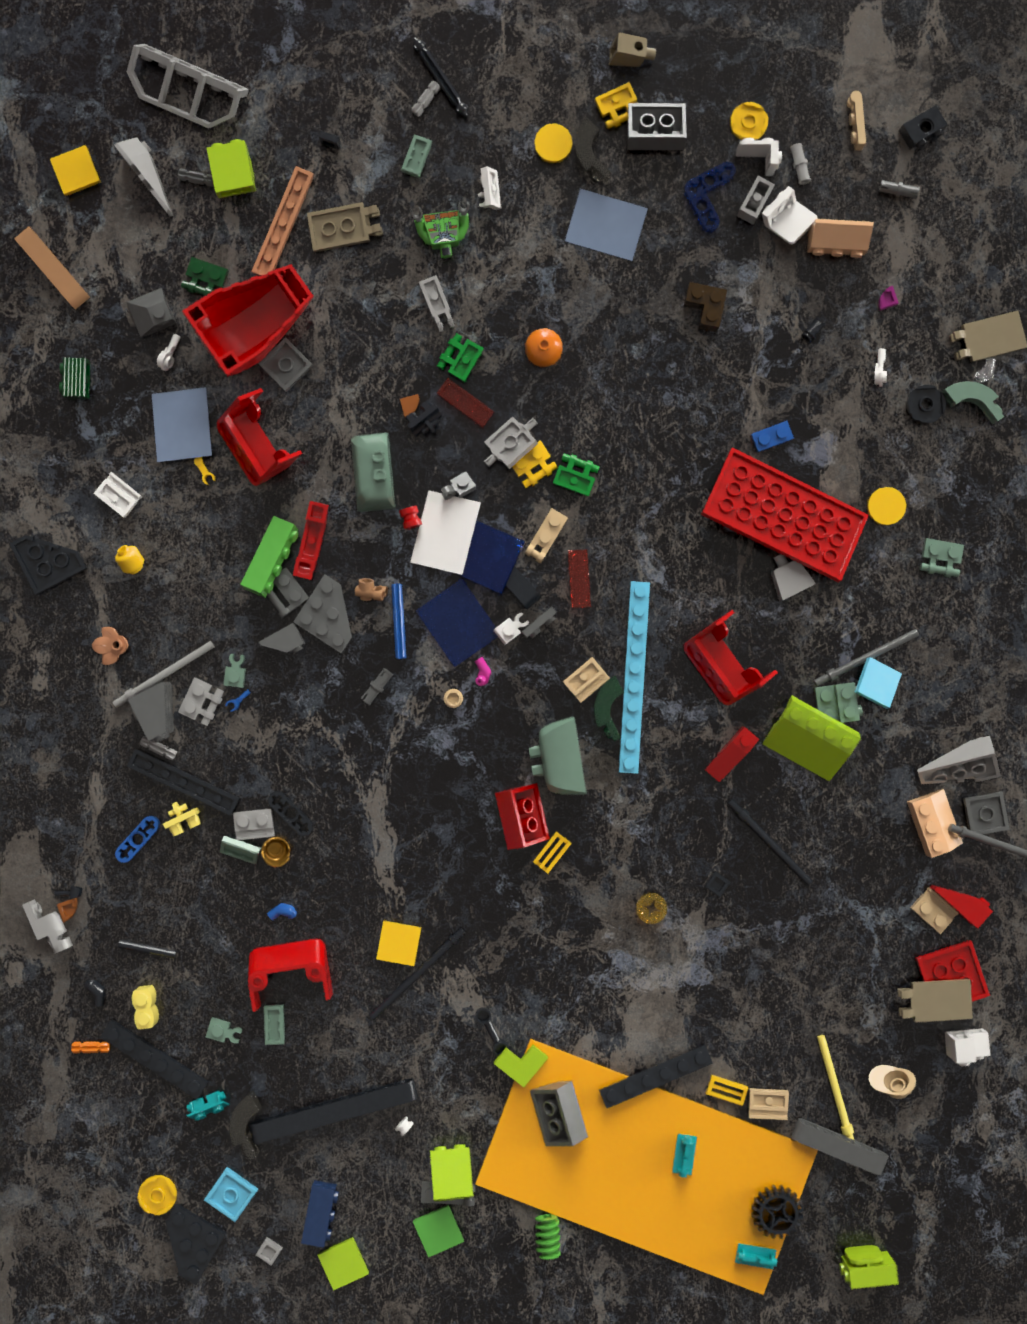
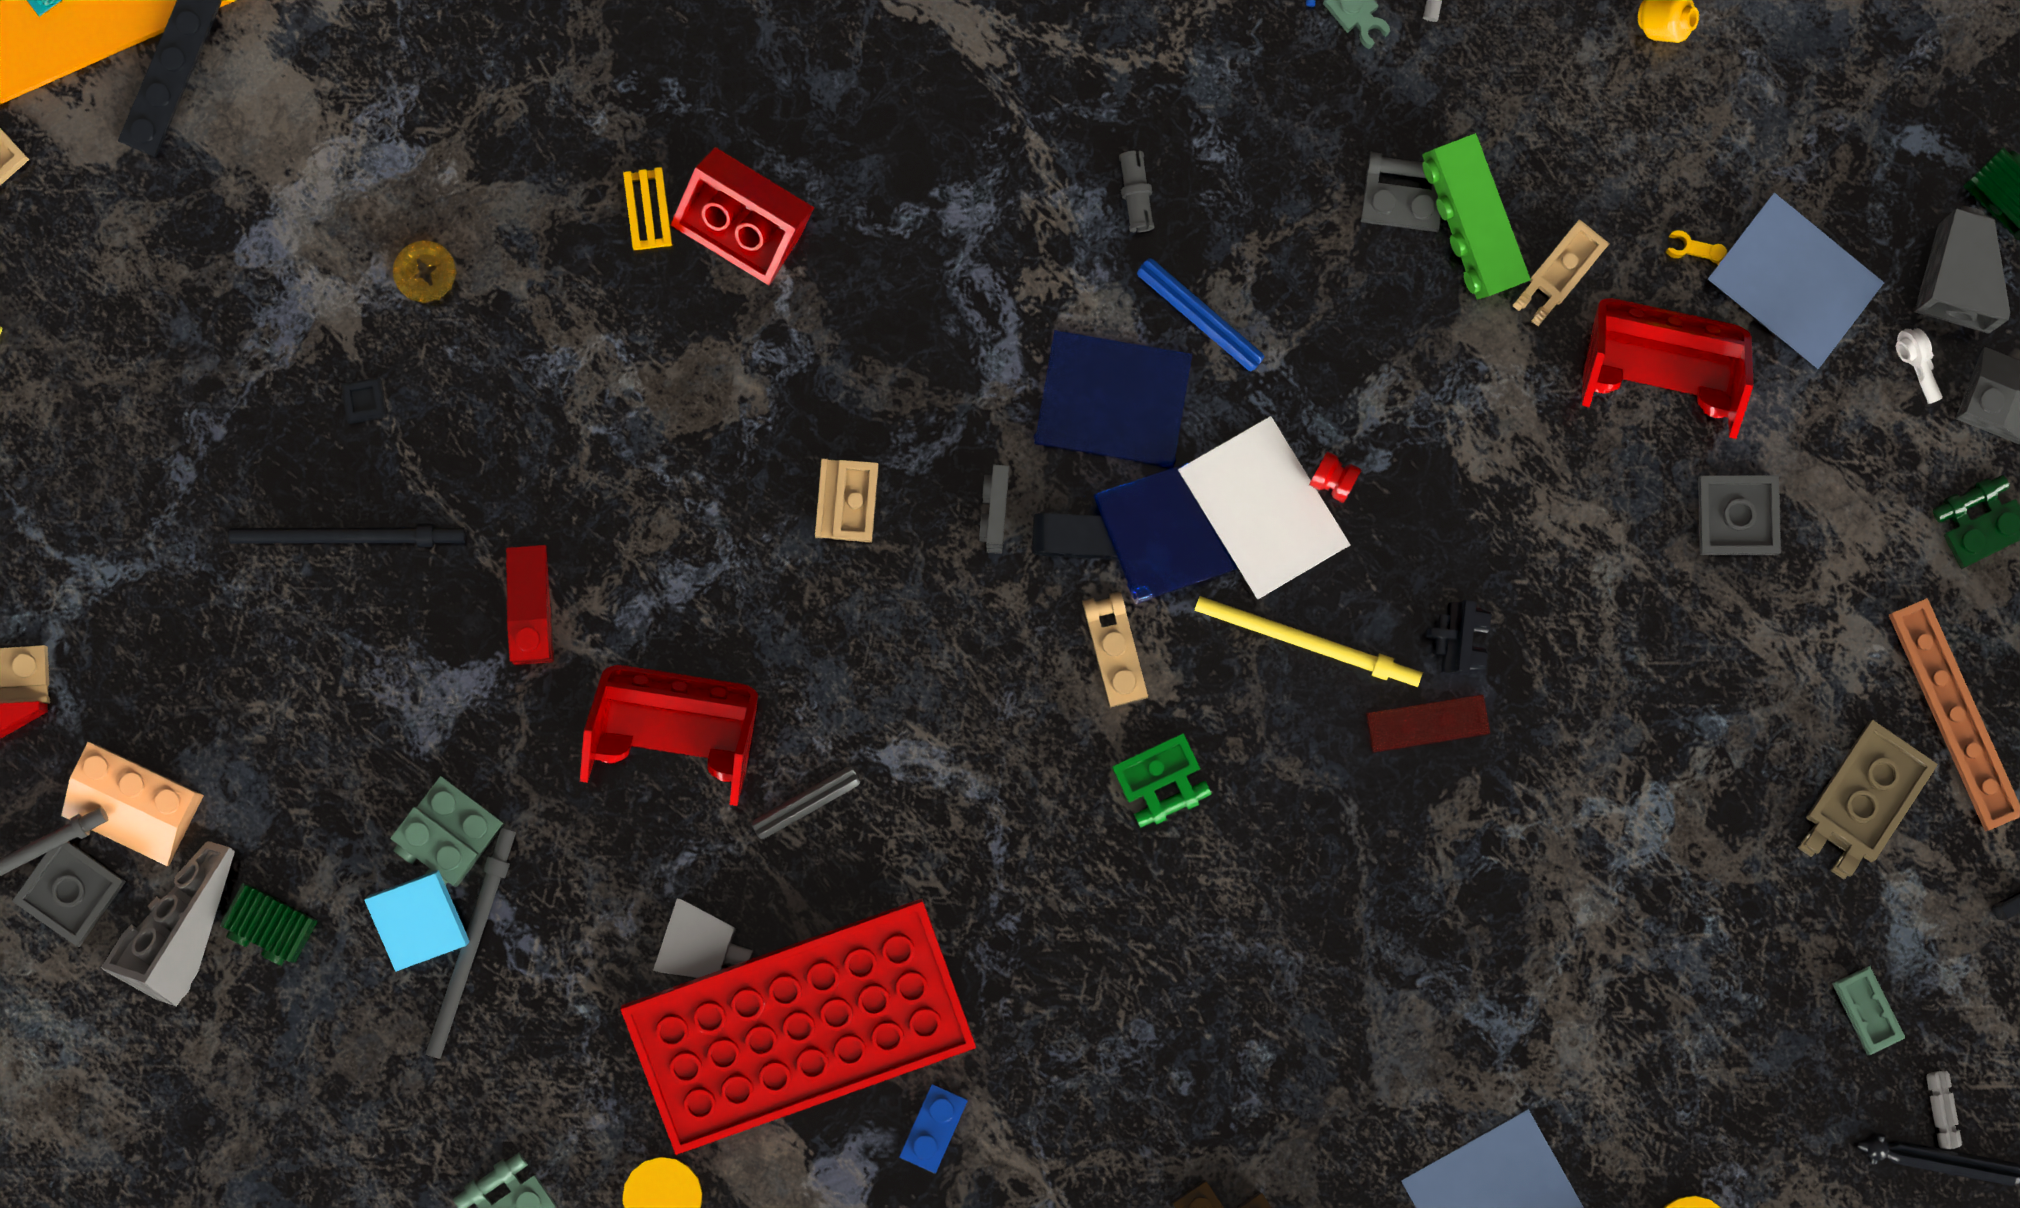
camera: 135 degrees right, 5 degrees down
(118, 495) = (1780, 91): white plate -> none
(121, 366) = (1965, 273): none -> dark grey slope
(248, 317) = (1857, 518): red windscreen -> none
(257, 509) = (1563, 268): none -> tan hinge
(285, 640) = (1332, 125): dark grey slope -> none
(311, 540) = (1441, 302): red slope -> none
(326, 615) = (1311, 220): dark grey plate -> none
(368, 591) = (1286, 312): medium nougat plate -> none
(373, 472) = (1457, 489): sand green hips -> none
(409, 404) = (1504, 639): dark orange tile -> none
(436, 301) = (1620, 826): light grey hinge -> none
(443, 228) = (1720, 940): torso -> none
(453, 698) = (1010, 284): tan plate -> none
(459, 485) = (1310, 597): plate -> none
(461, 438) = (1381, 666): none -> light yellow bar
(465, 360) = (1491, 784): green plate -> none
(484, 672) = (1002, 363): dark pink arm -> none
(489, 181) = (1712, 1072): white plate -> none
(509, 629) = (1030, 459): white plate -> none
(511, 442) = (1302, 729): light grey plate -> none
(533, 458) = (1251, 735): yellow plate -> none
(543, 347) = (1397, 919): orange cylinder -> none
(559, 757) = (771, 349): sand green hips -> none
(579, 578) = (1004, 636): clear red tile -> none
(606, 695) = (795, 506): clear green arch -> none
(634, 677) = (781, 575): medium azure plate -> none
(704, 590) = (805, 802): none -> dark grey axle
(730, 1083) = (66, 138): yellow tile -> none
(812, 739) = (434, 743): lime piece -> none
(929, 733) = (268, 924): none -> dark green brick

